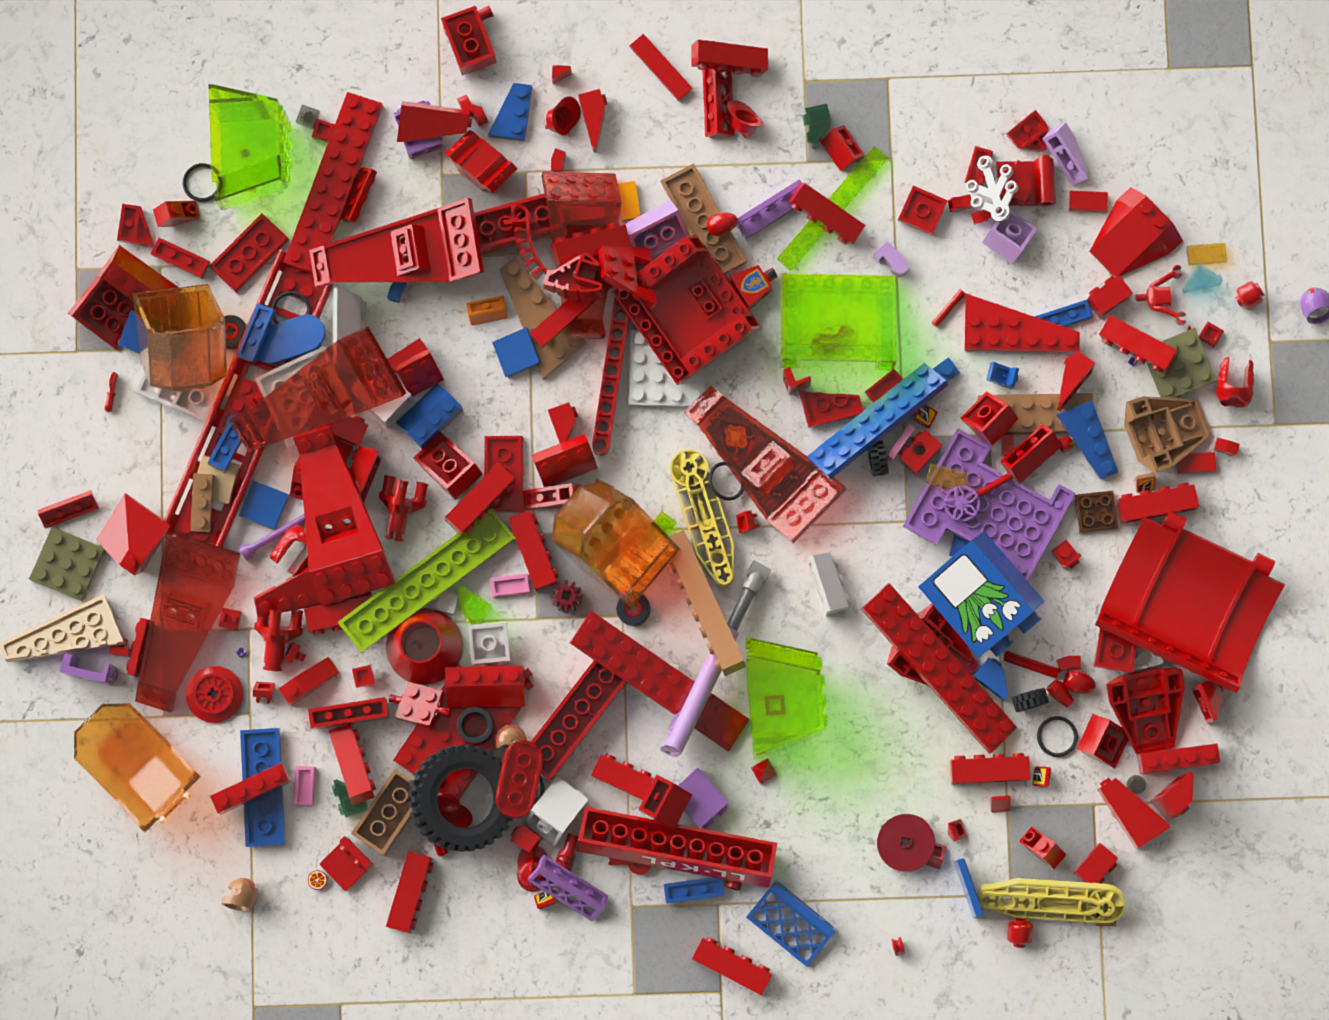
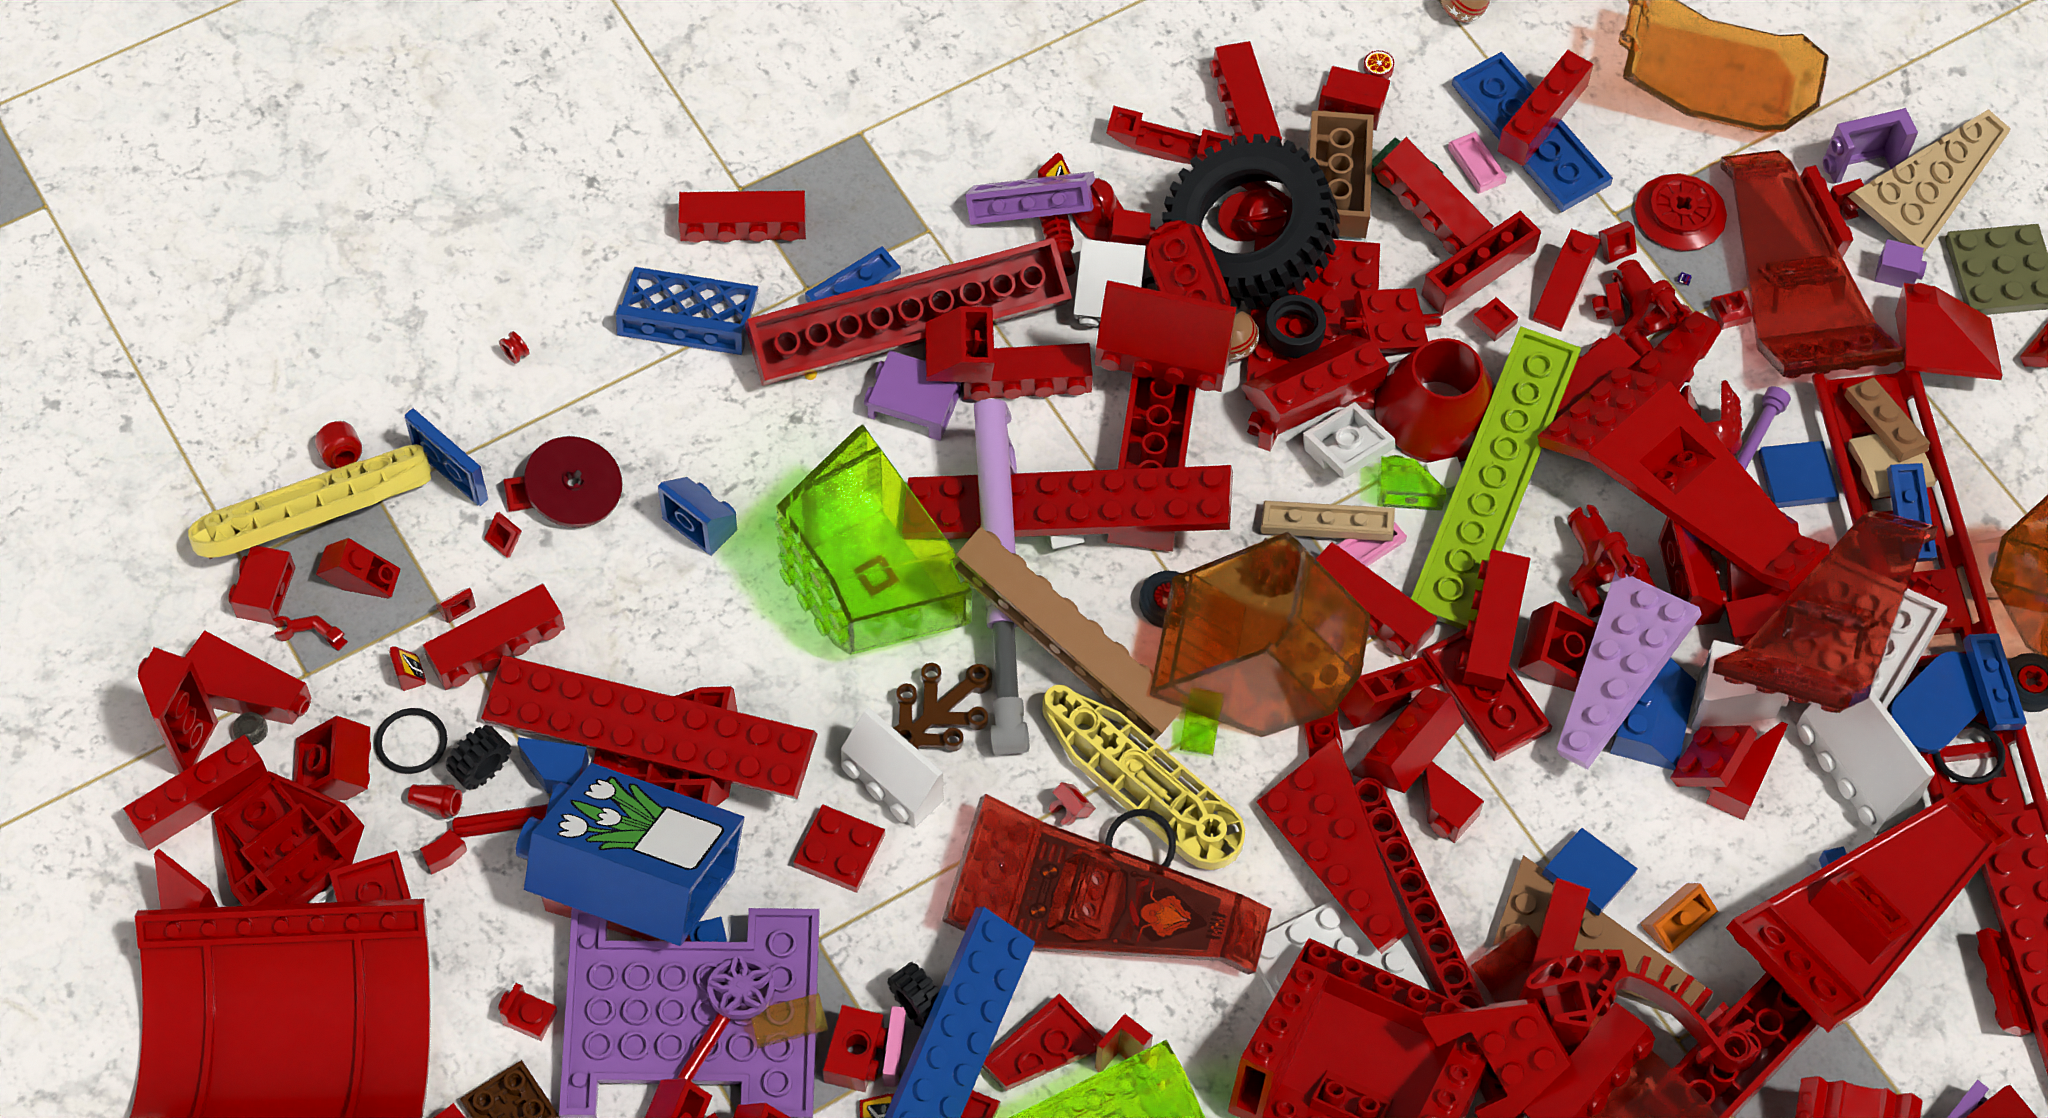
camera: 145 degrees right, 20 degrees down
(122, 593) = (1900, 264): none -> medium lavender brick
(426, 444) = (1629, 649): none -> lavender wing
(467, 890) = (1160, 140): none -> red slope
(525, 607) = (1328, 520): none -> tan tile
(560, 735) = (1165, 336): none -> red slope
(631, 435) = (1330, 831): none -> red wing
(786, 608) = (938, 713): none -> reddish brown plant
(850, 785) = (697, 513): none -> blue slope
(872, 561) = (839, 848): none -> red plate
(1071, 816) = (333, 634): none -> red arm
(1079, 682) = (412, 827): red animal -> none

